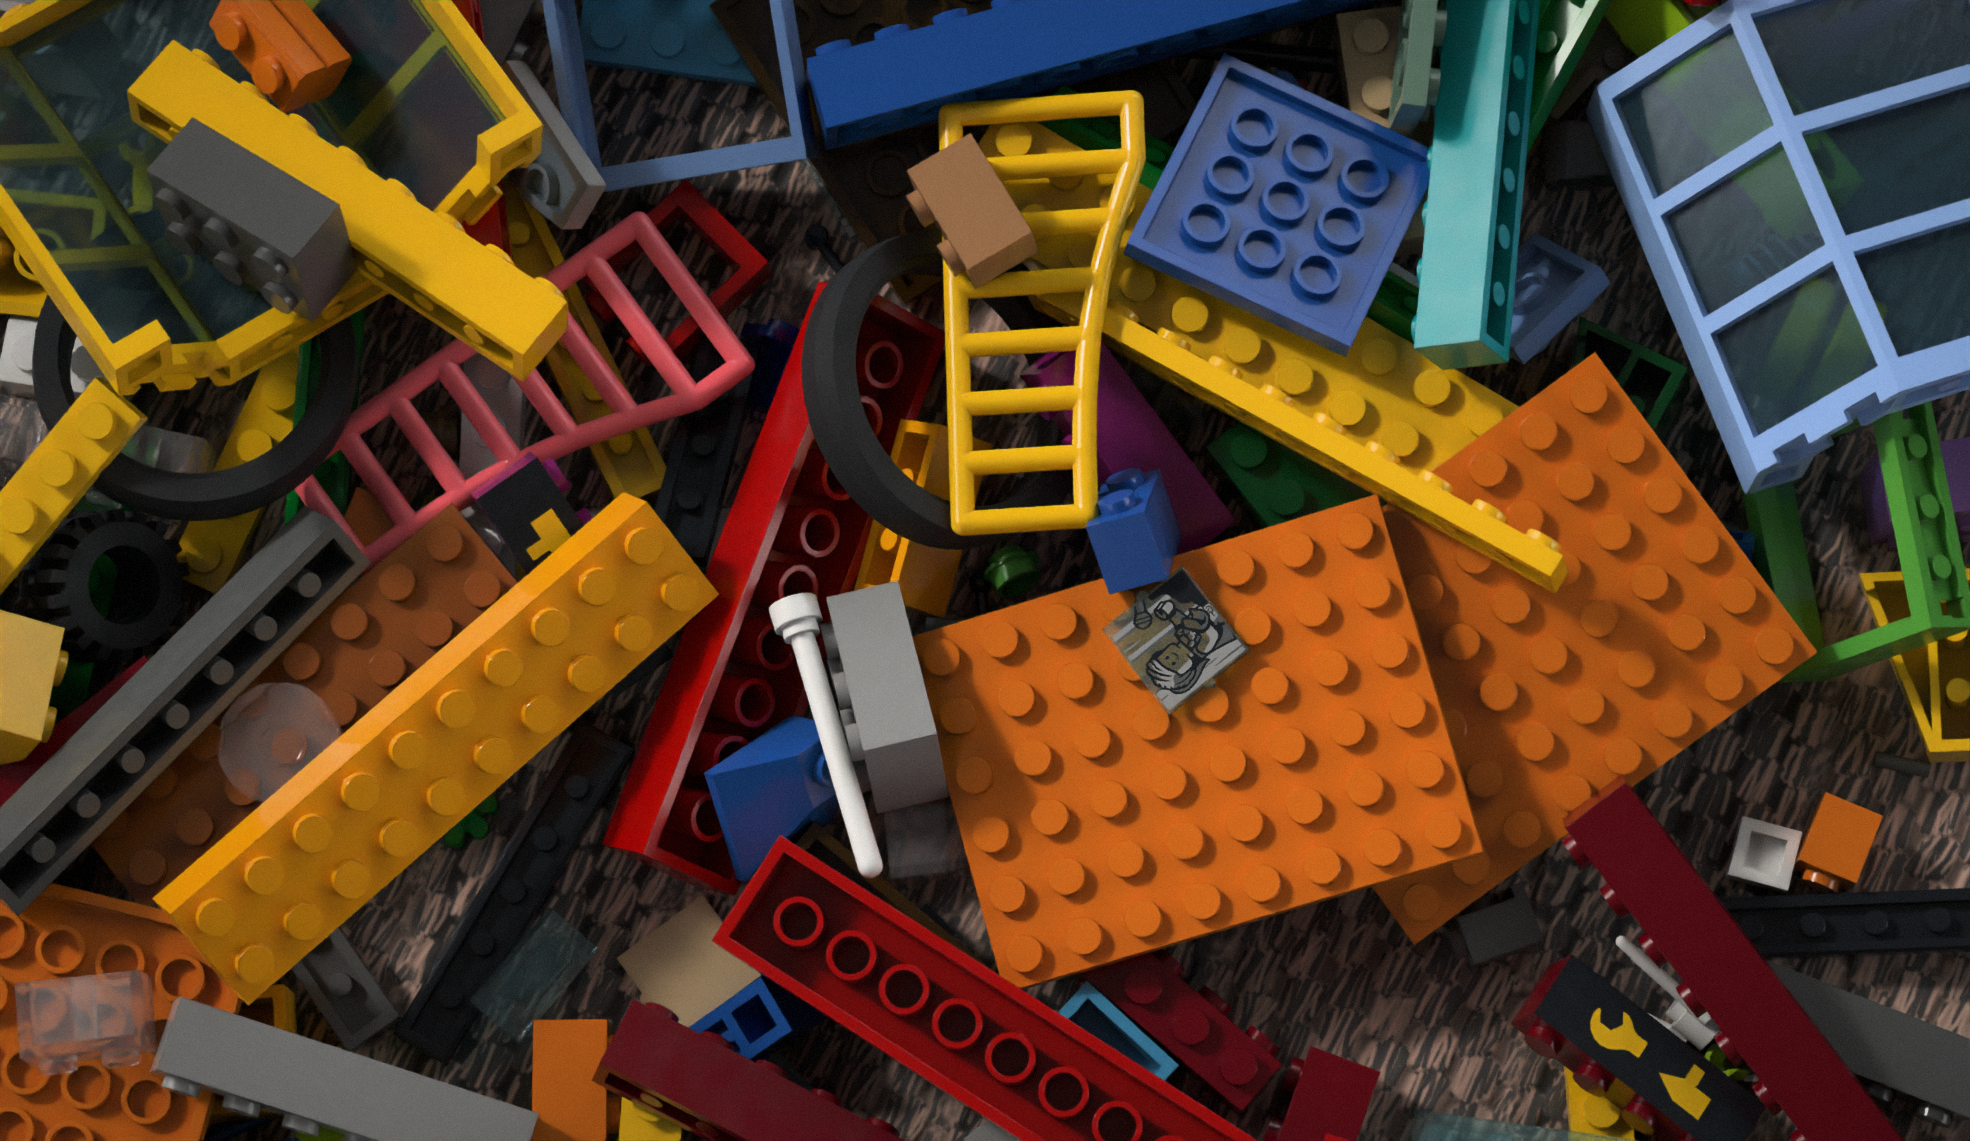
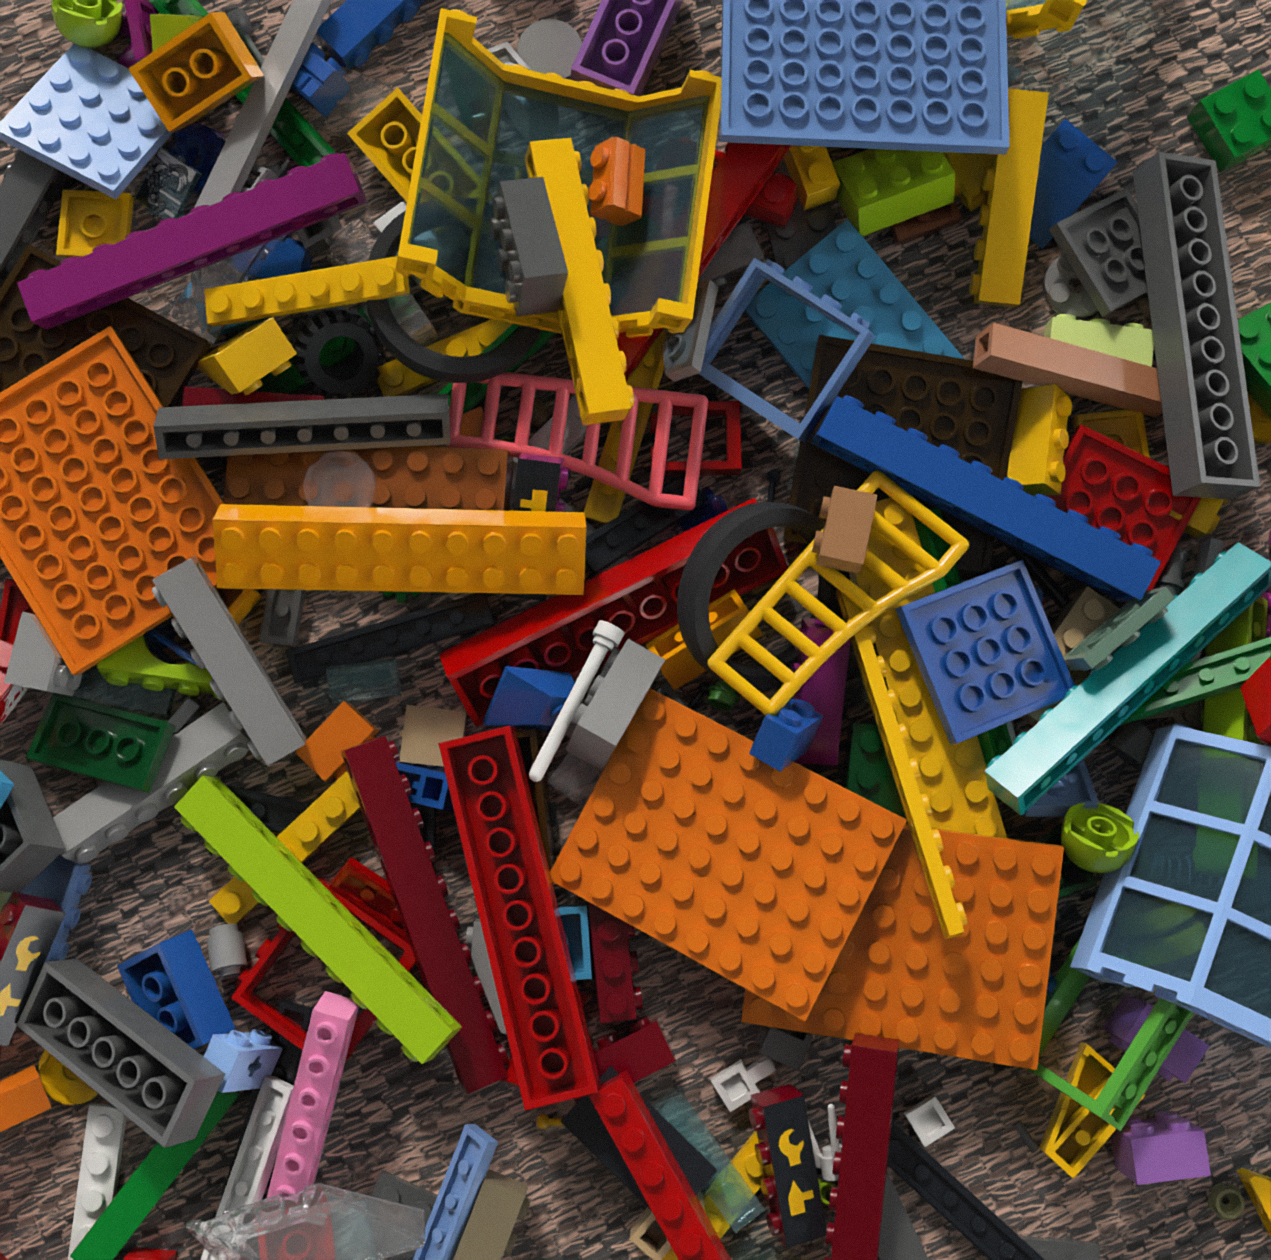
camera: 40 degrees right, 5 degrees up
(86, 1020) = (149, 529): clear brick -> none
(1176, 640) = (759, 800): piece -> none
(1484, 1031) = (738, 1082): none -> white plate
(1631, 308) = (1098, 838): none -> lime cylinder
(1836, 844) = (965, 1147): orange brick -> none

